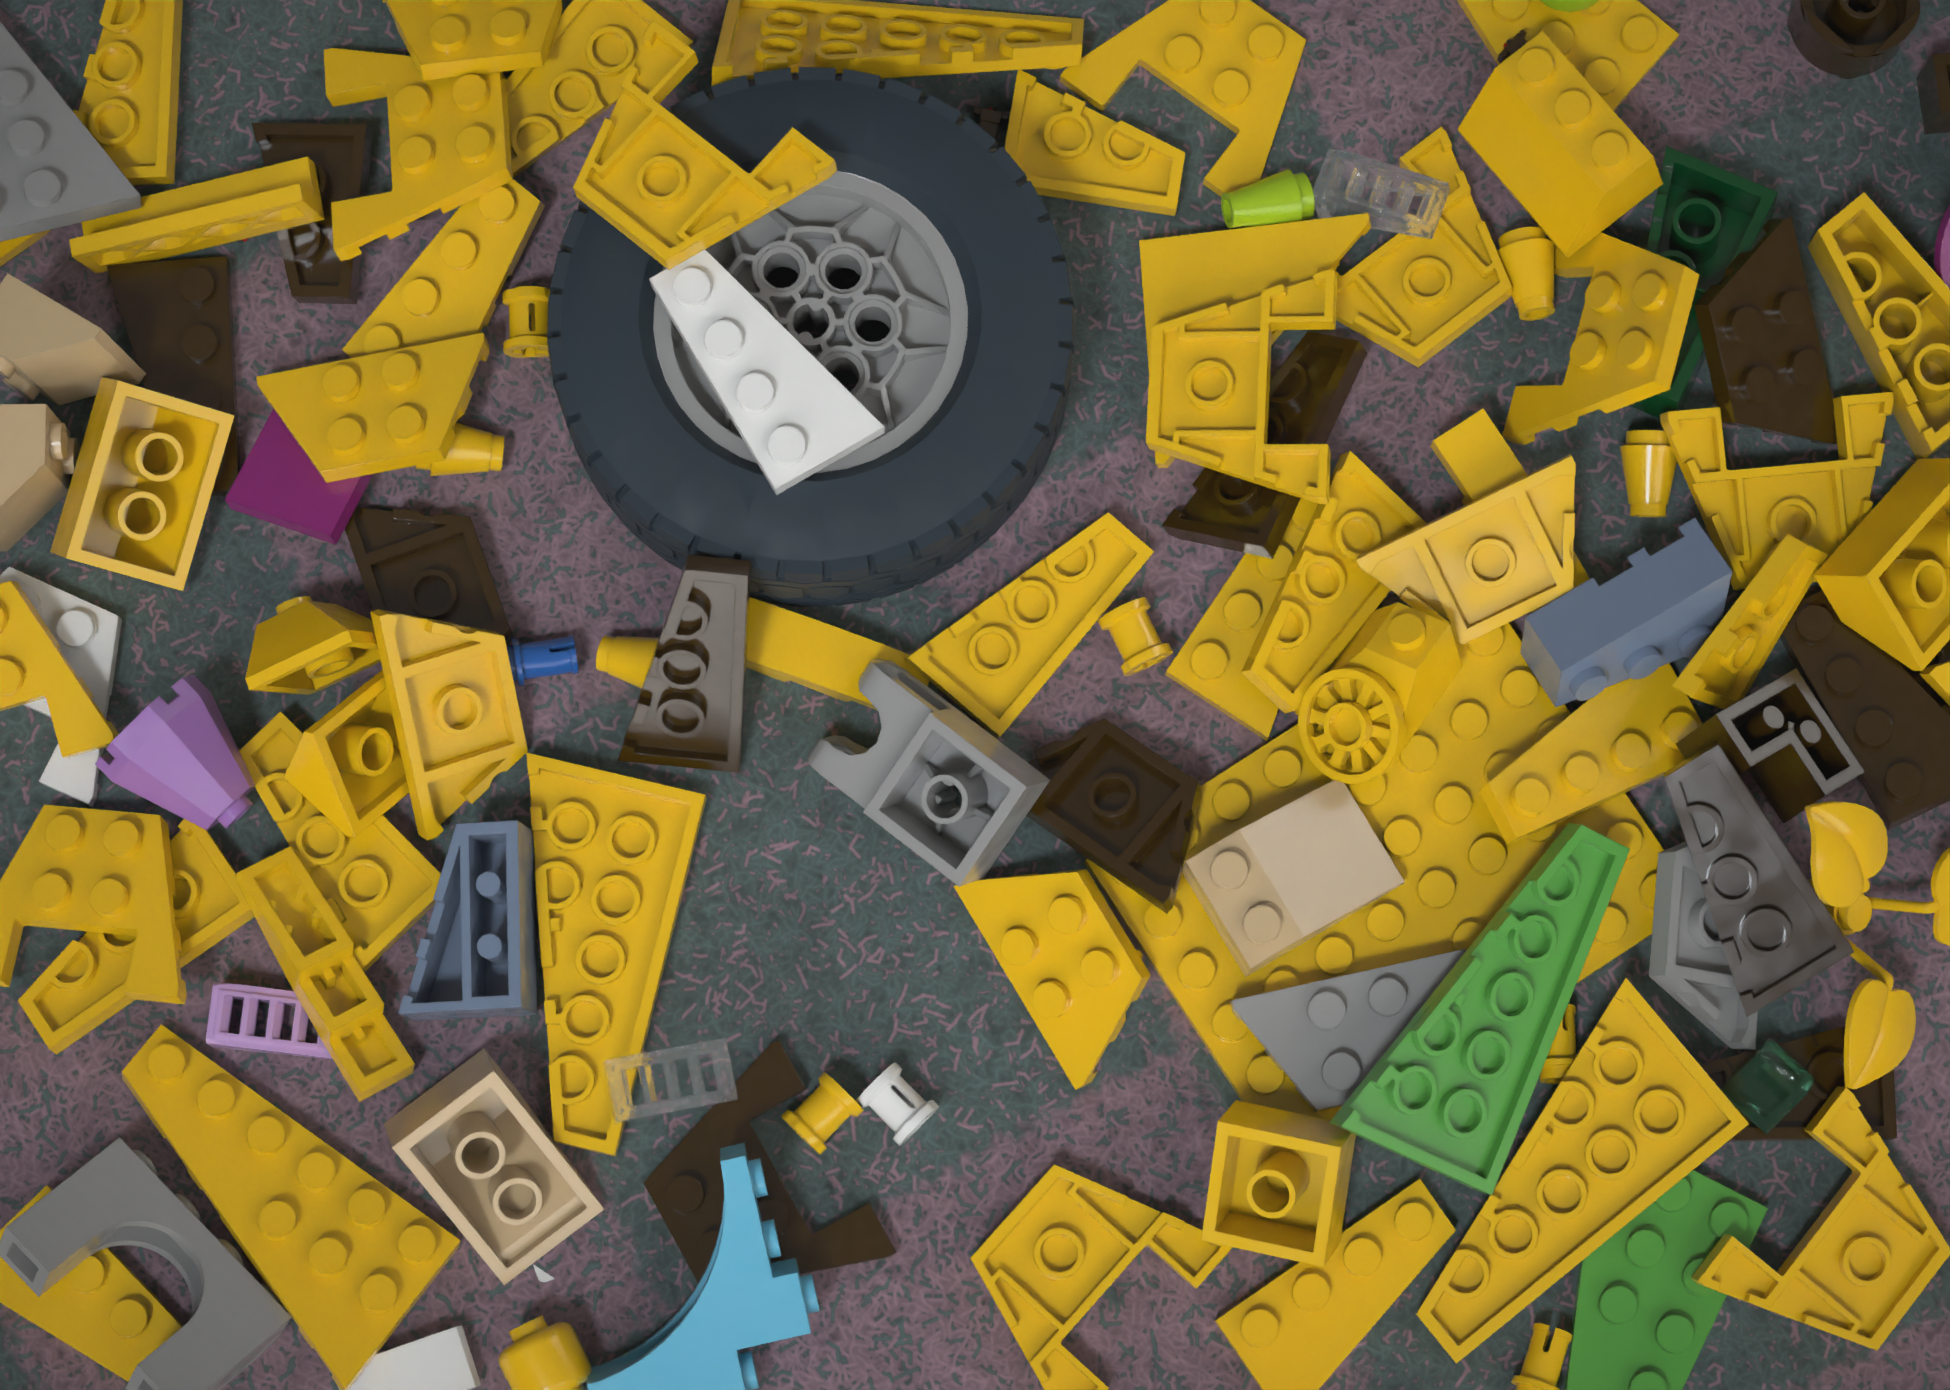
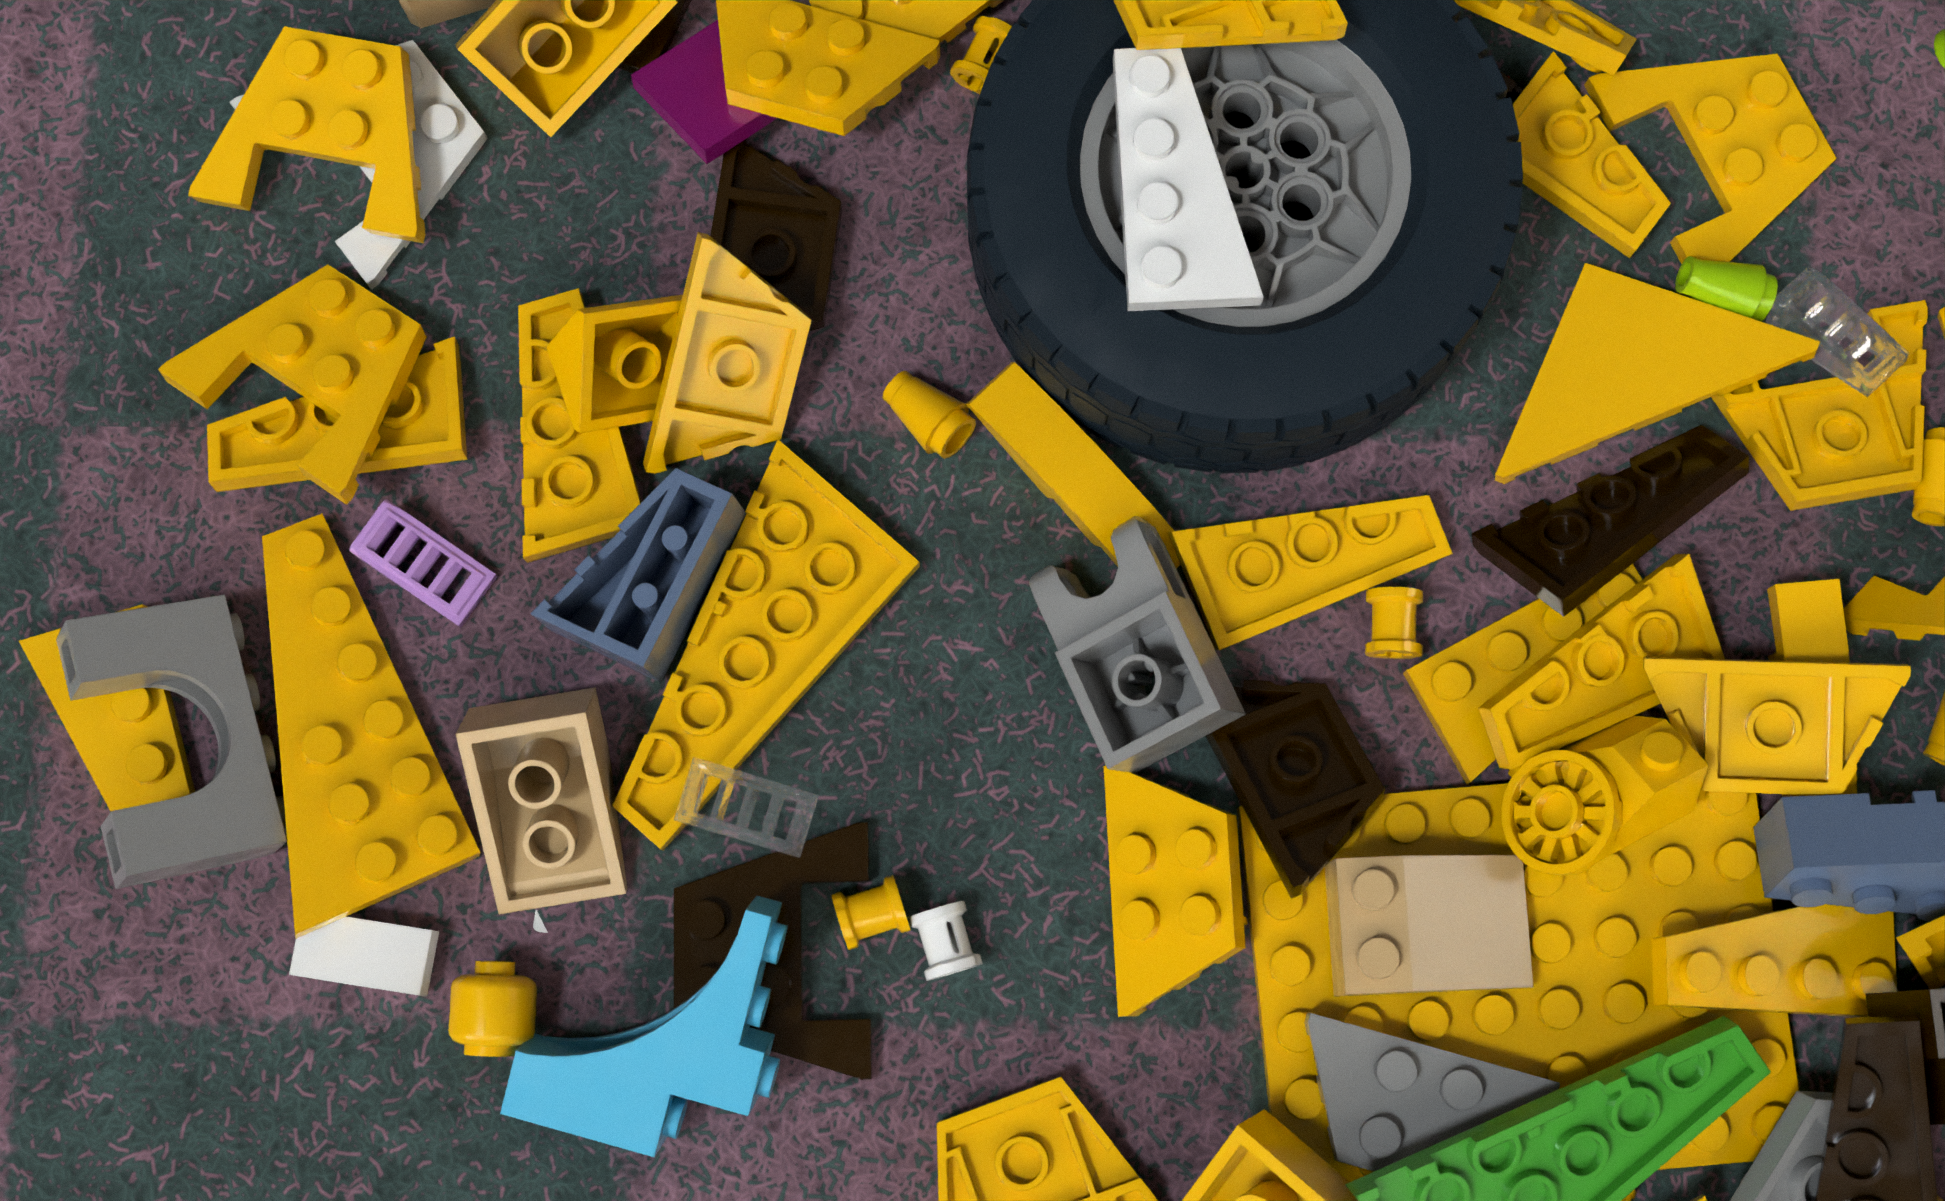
camera: 30 degrees right, 0 degrees up
(182, 758) = (465, 281): medium lavender cone -> none
(310, 647) = (629, 243): yellow slope -> none
(324, 973) = (489, 544): yellow slope -> none
(470, 452) = (869, 144): yellow cone -> none
(542, 658) = (837, 362): blue pin -> none
(697, 675) = (967, 447): dark brown wing -> none
(1215, 386) = (1592, 426): yellow wing -> none

